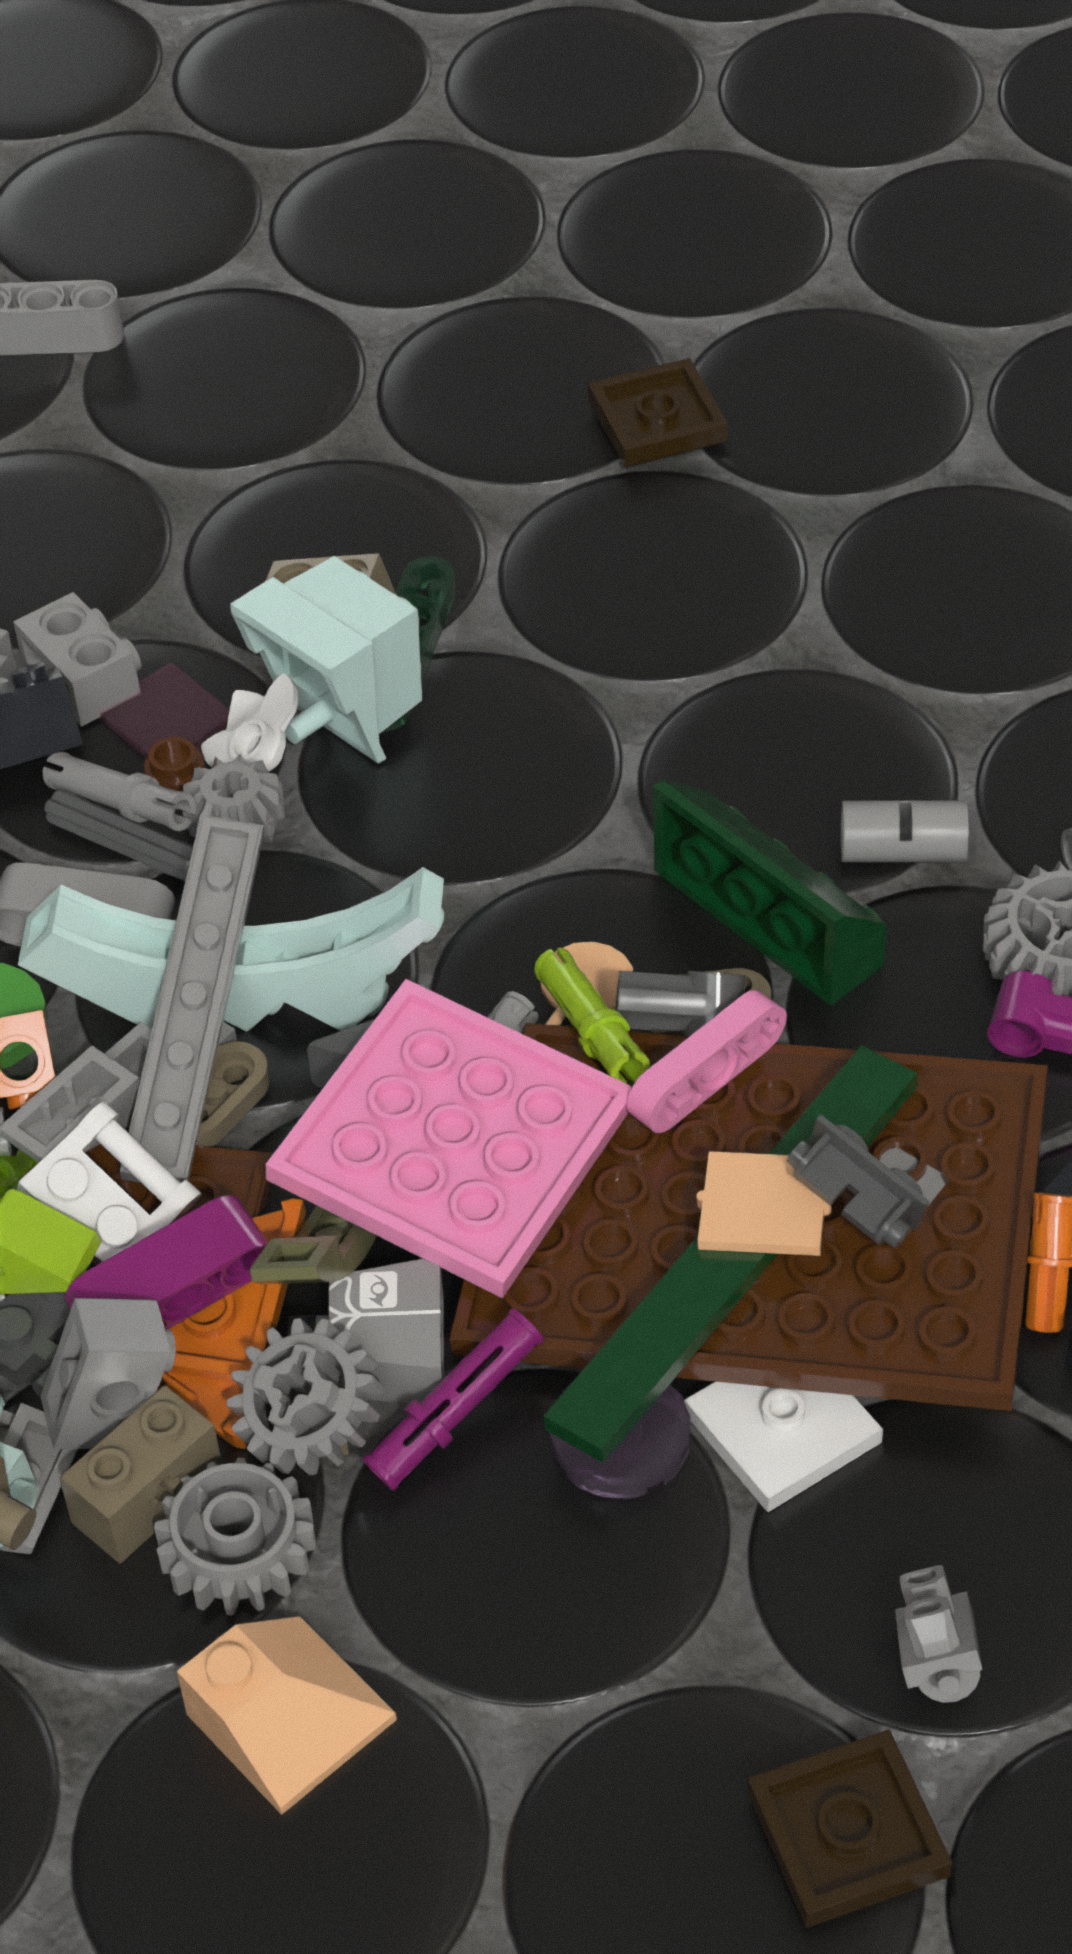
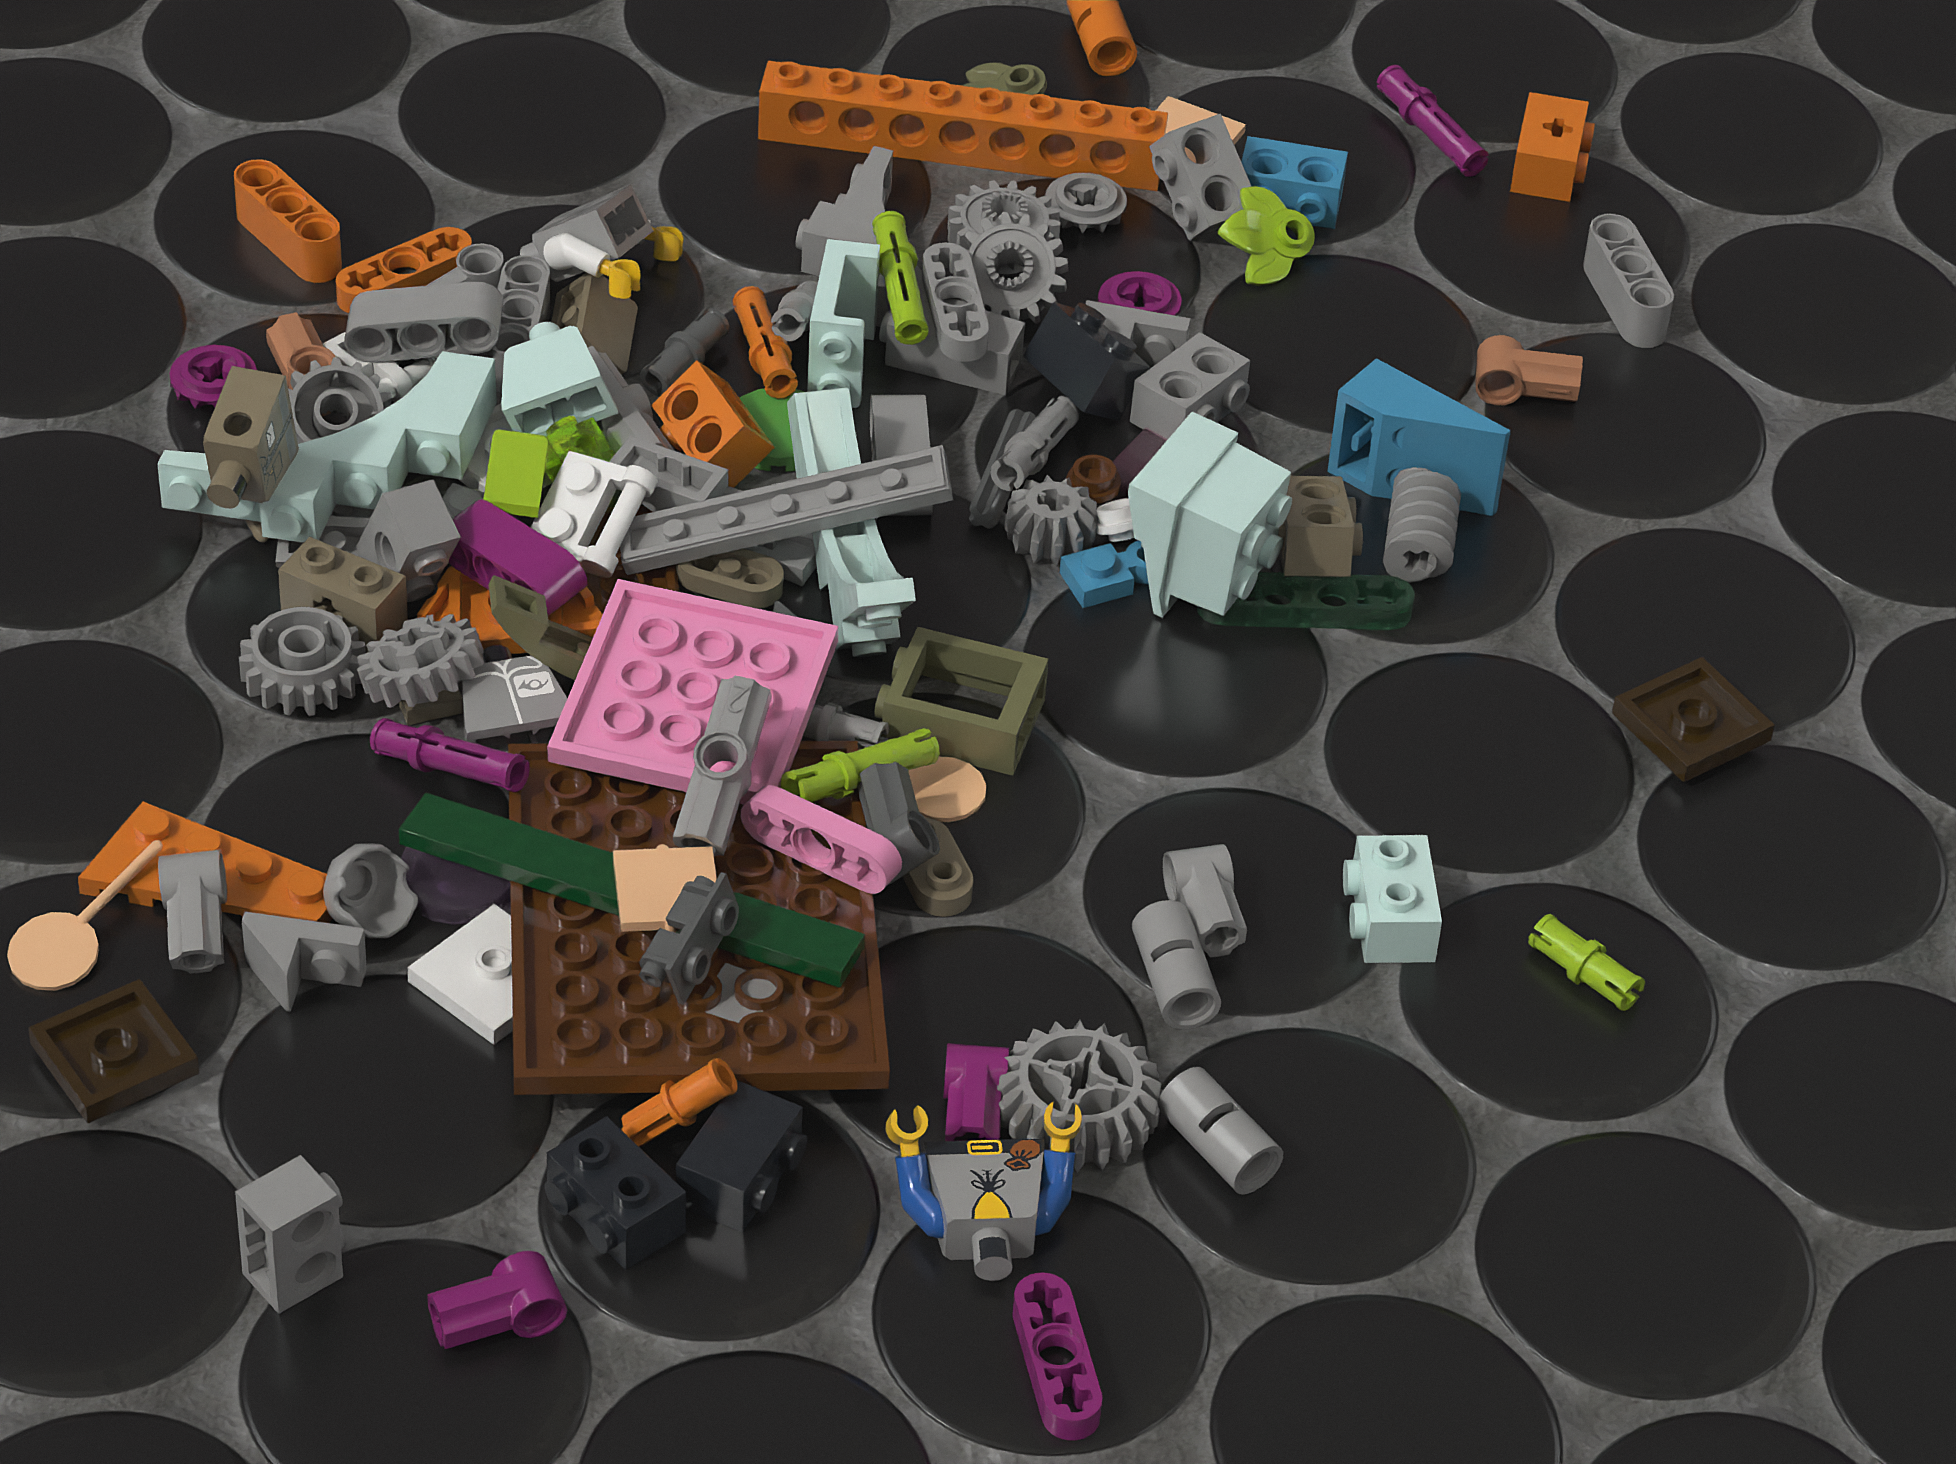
camera: 70 degrees right, 5 degrees down
(144, 421) = (1509, 372): none -> nougat piece
(241, 499) = (1399, 423): none -> dark azure slope
(281, 1706) = (164, 714): light nougat slope -> none
(312, 785) = (1103, 573): none -> dark azure plate
(341, 529) = (1421, 525): none -> light grey piece
(510, 882) = (974, 664): none -> olive window
(539, 1716) = (254, 877): none -> orange wing
(628, 1697) = (192, 894): none -> light grey piece
(643, 1131) = (732, 737): none -> light grey piece
(645, 1879) = (63, 947): none -> light nougat piece
(657, 1515) = (369, 890): none -> light grey hair
(735, 1613) = (296, 949): none -> light grey slope
(765, 892) = (1058, 864): dark green slope -> none
(792, 792) = (1205, 885): none -> light grey piece
(849, 655) = (1394, 899): none -> light aqua brick
(937, 1637) = (280, 1078): light grey hips -> none
(948, 550) = (1586, 962): none -> lime pin

